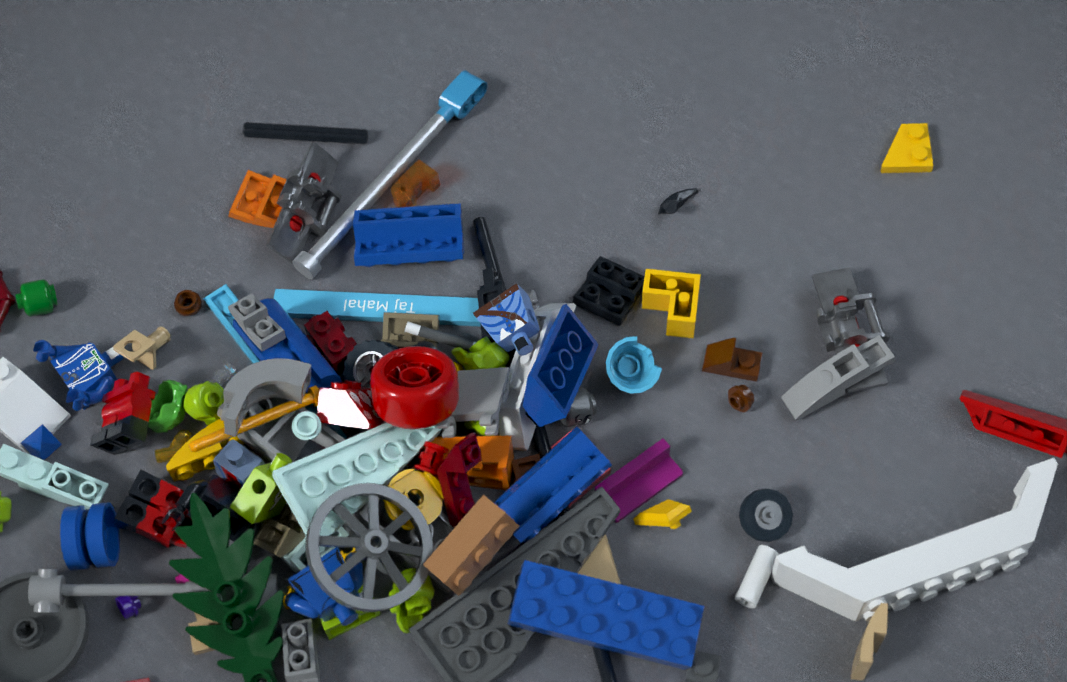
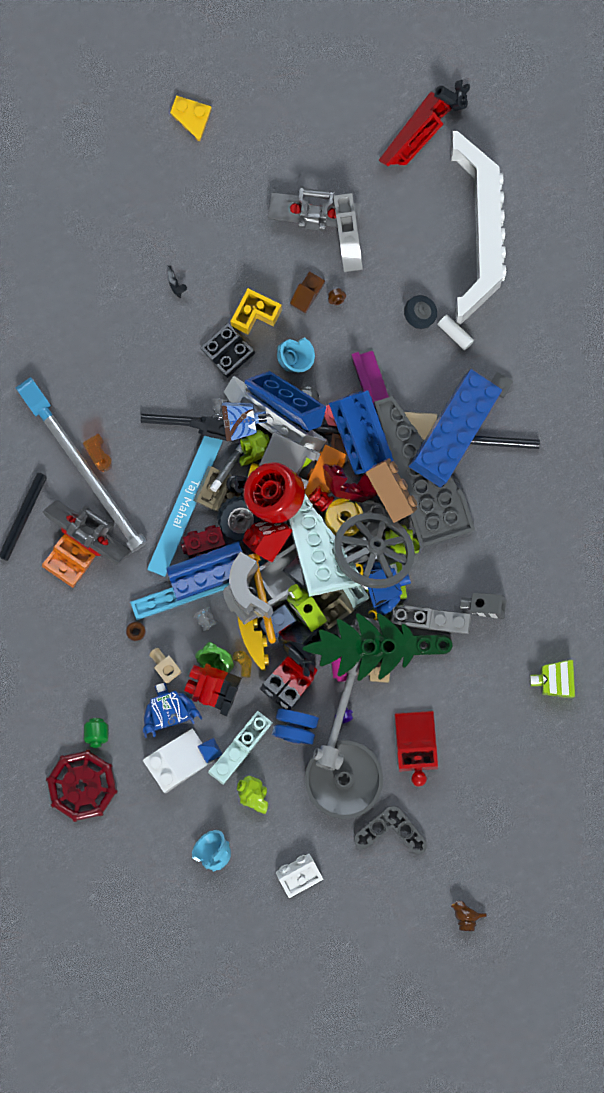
camera: 70 degrees left, 20 degrees up
(204, 401) = (225, 632): lime head -> none
(256, 322) = (187, 582): light grey slope -> none
(306, 426) = (274, 569): light aqua plate -> none
(408, 235) = (142, 467): blue brick -> none
(663, 514) = (398, 372): yellow piece -> none
(870, 642) = (524, 289): tan slope -> none

